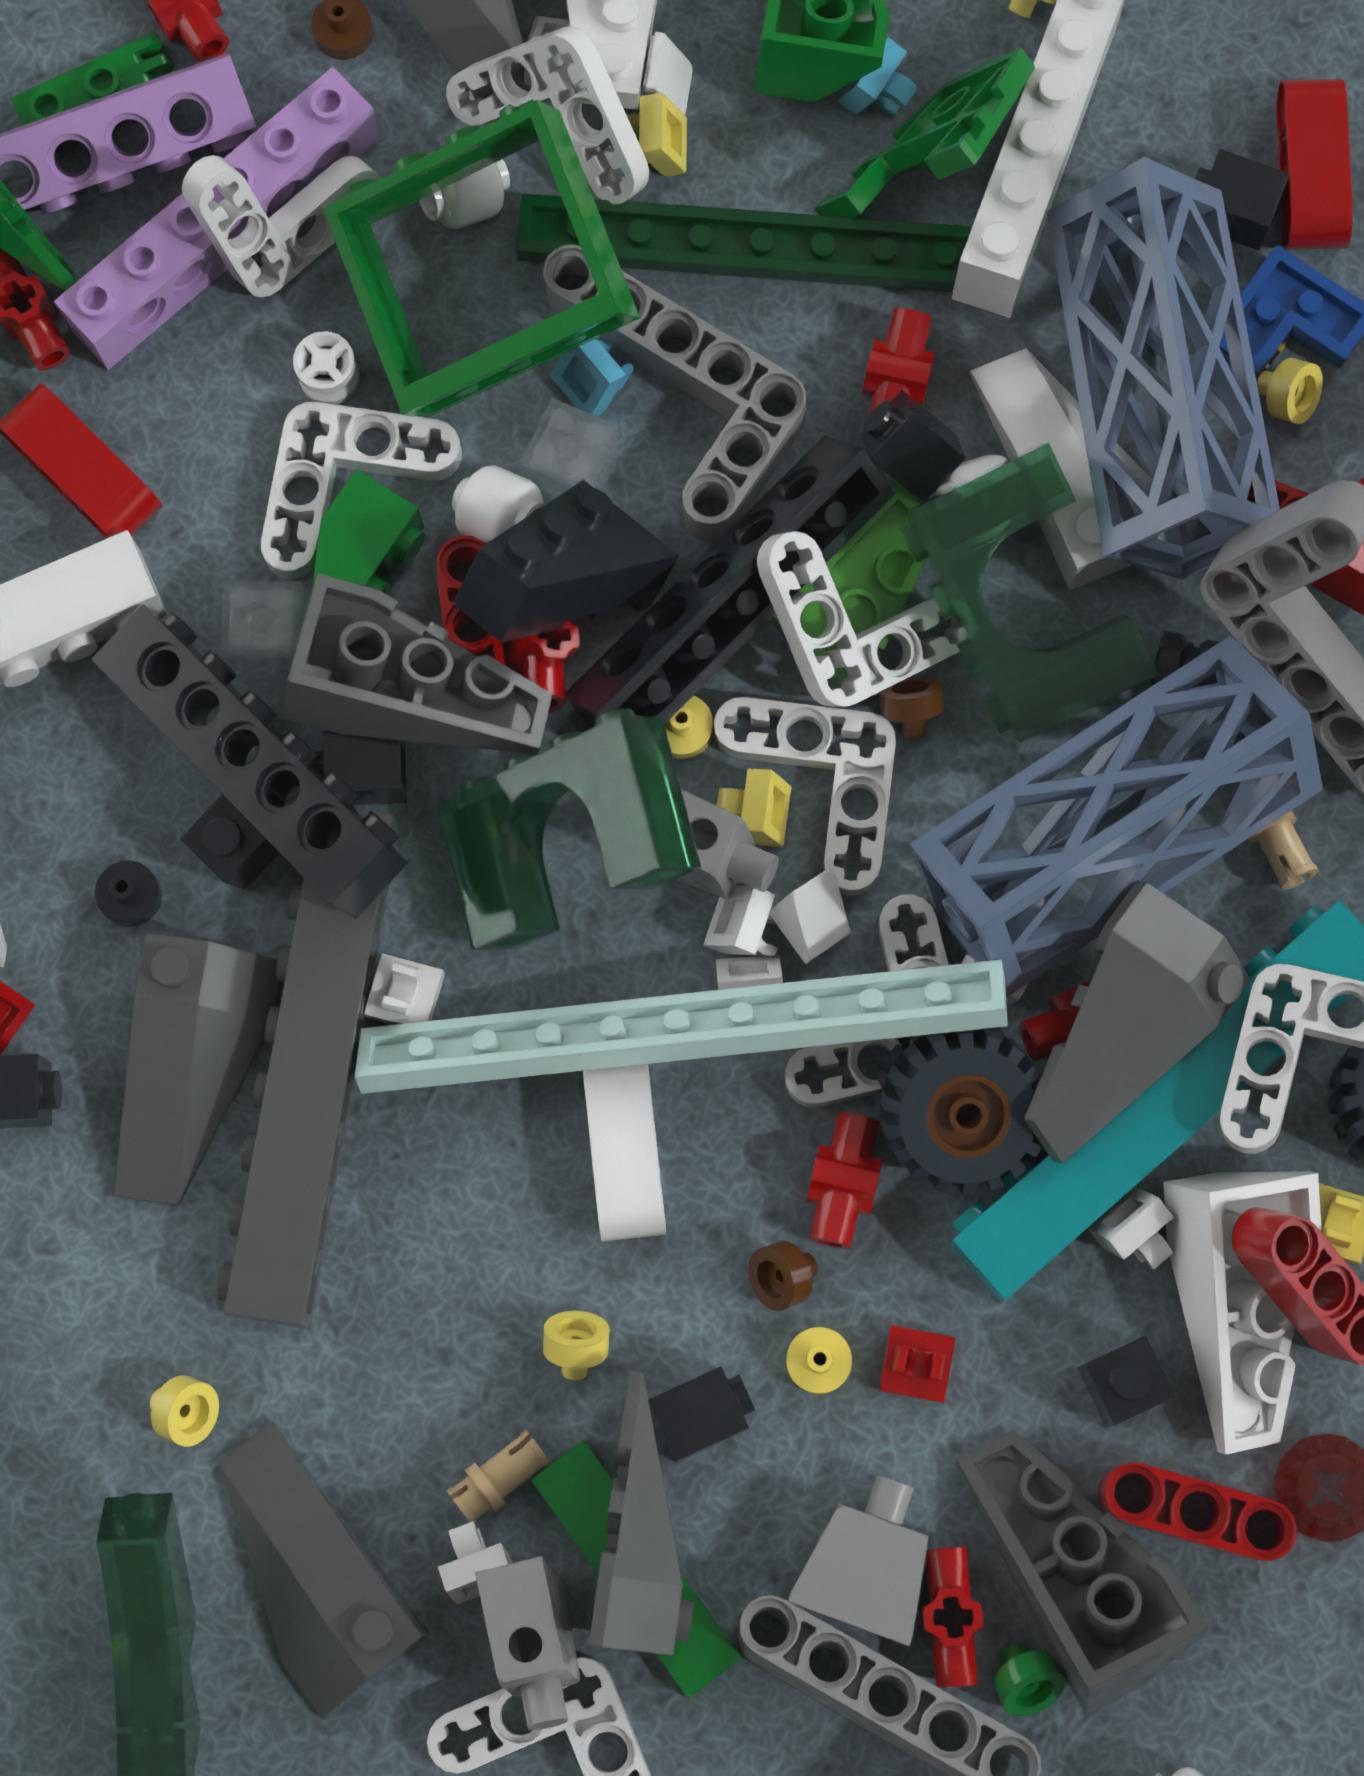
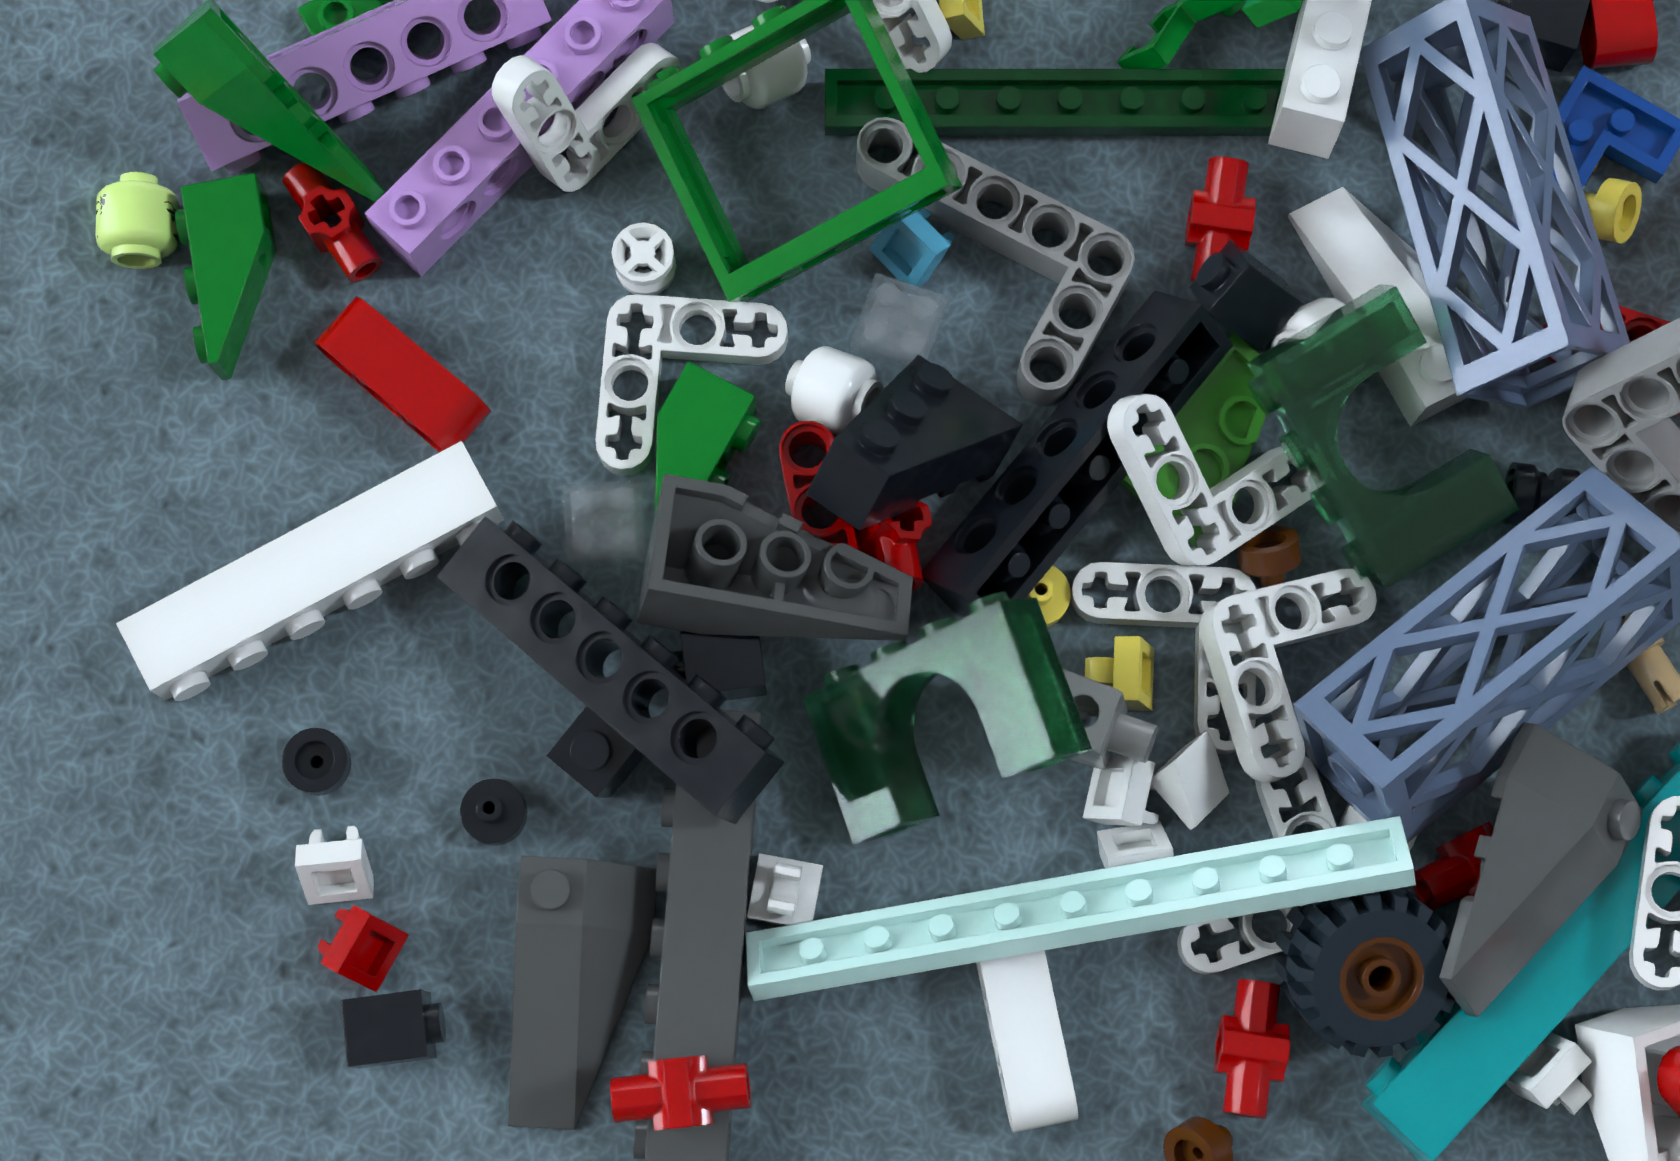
camera: 10 degrees left, 0 degrees up
(276, 1170) = (680, 1092): none -> red axle
(895, 780) = (1262, 635): none -> white beam

